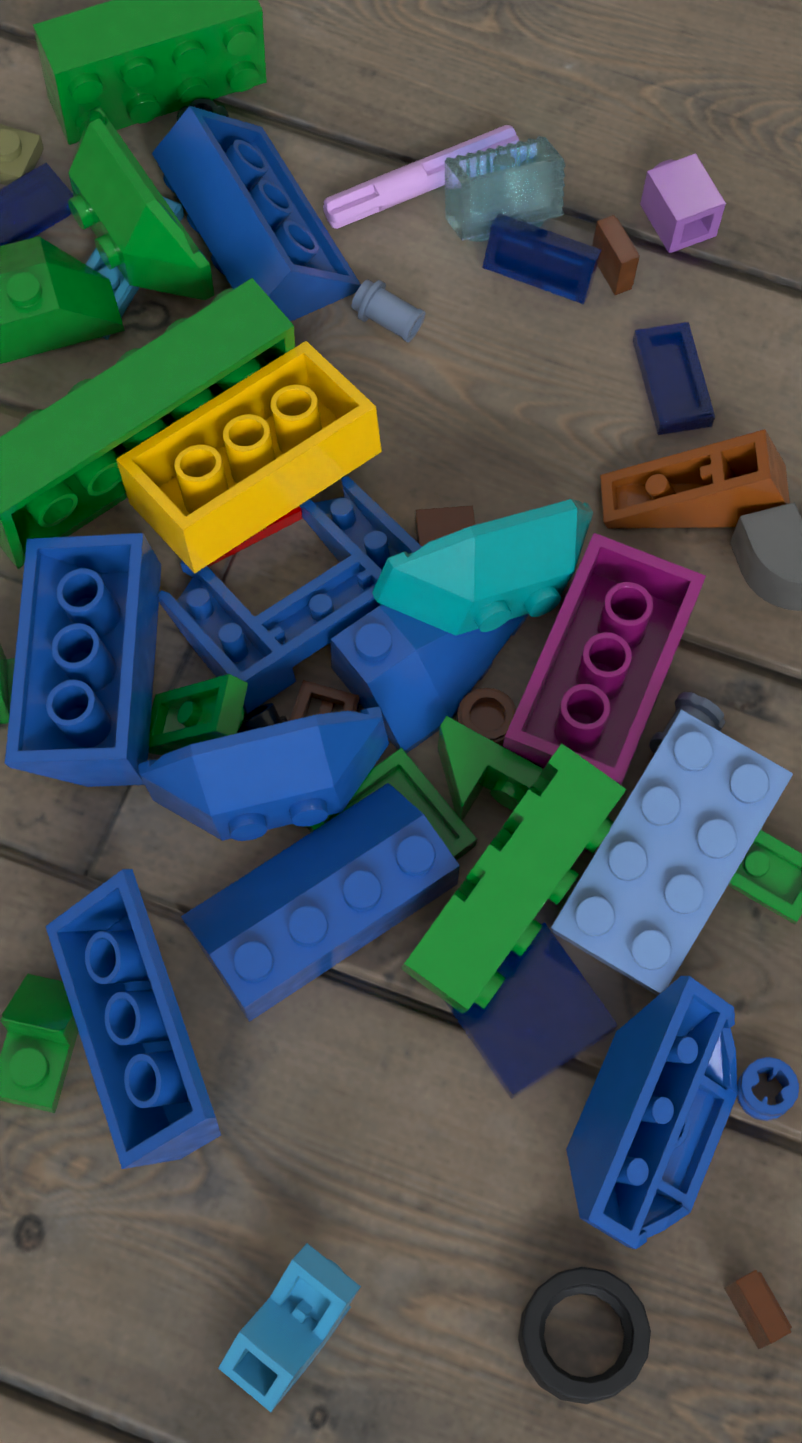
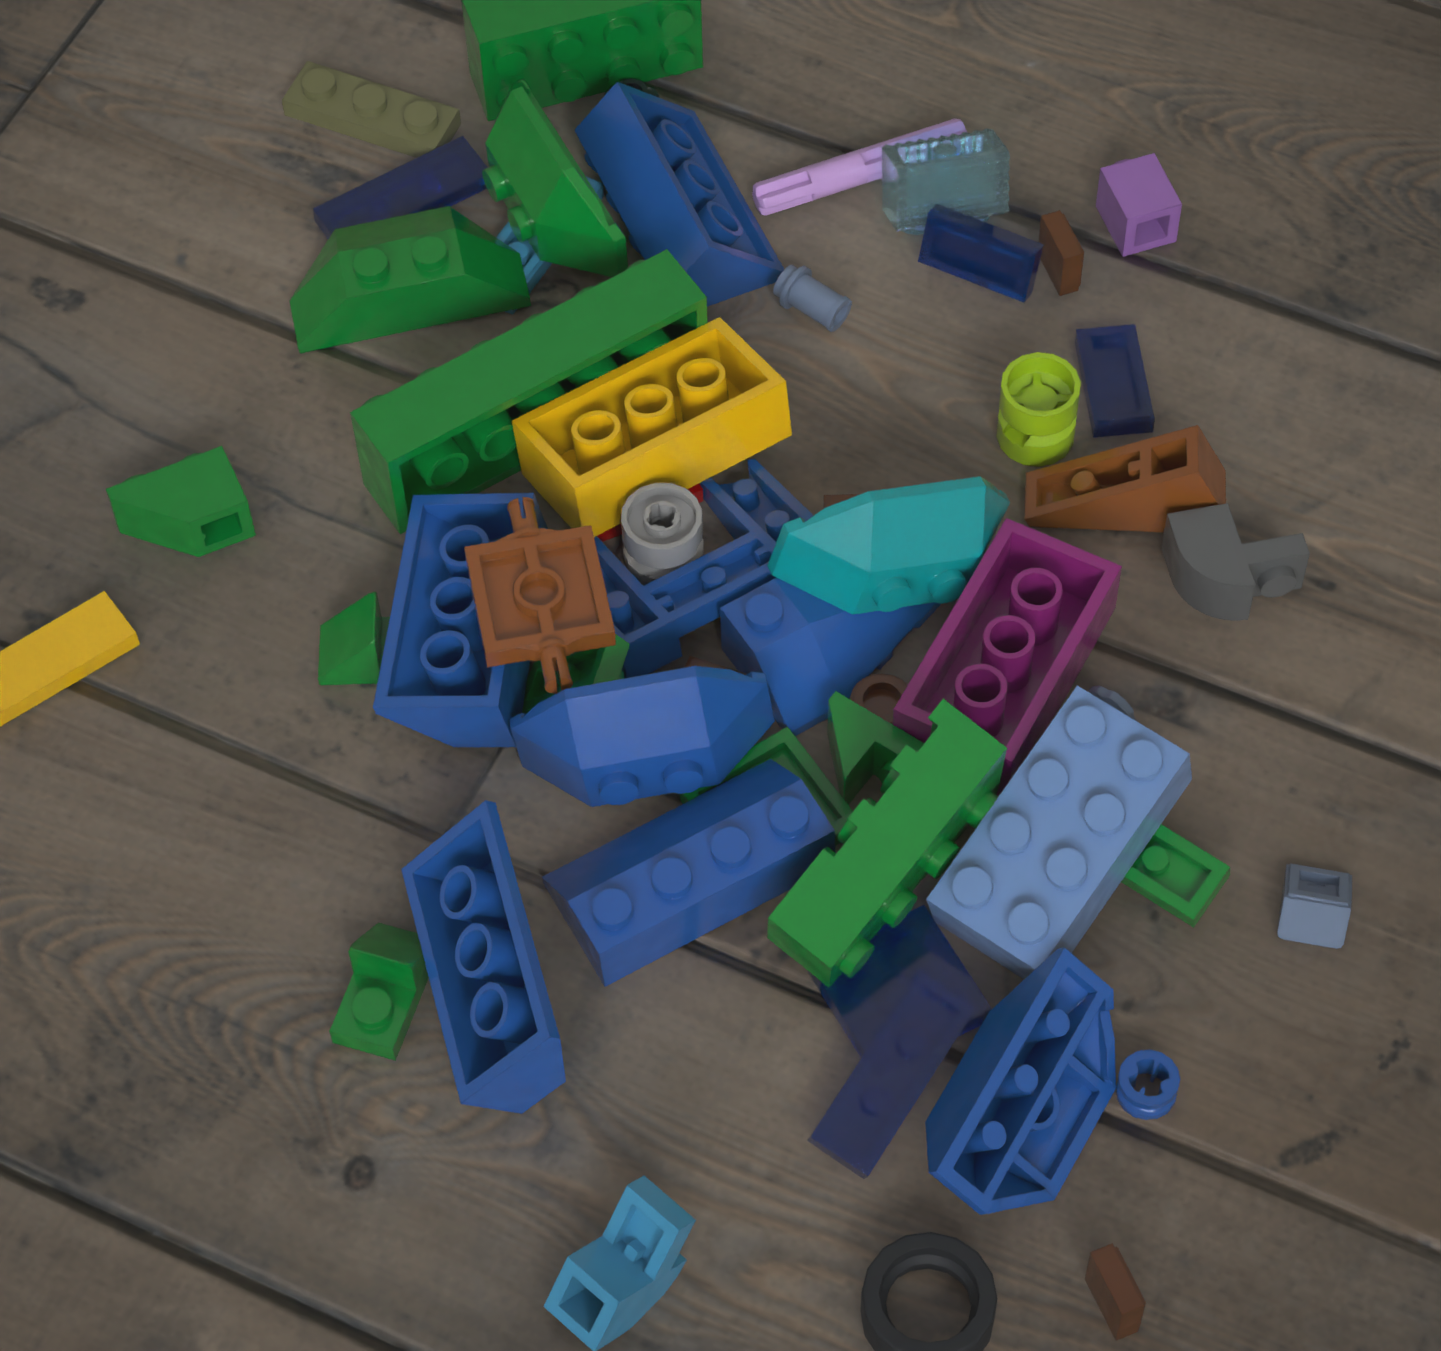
camera: 10 degrees right, 10 degrees down
(158, 645) = (539, 595): none -> dark orange plate
(267, 561) = (661, 530): none -> light grey wheel
(530, 1100) = (891, 1073): none -> clear blue tile
(609, 414) = (1038, 409): none -> lime wheel

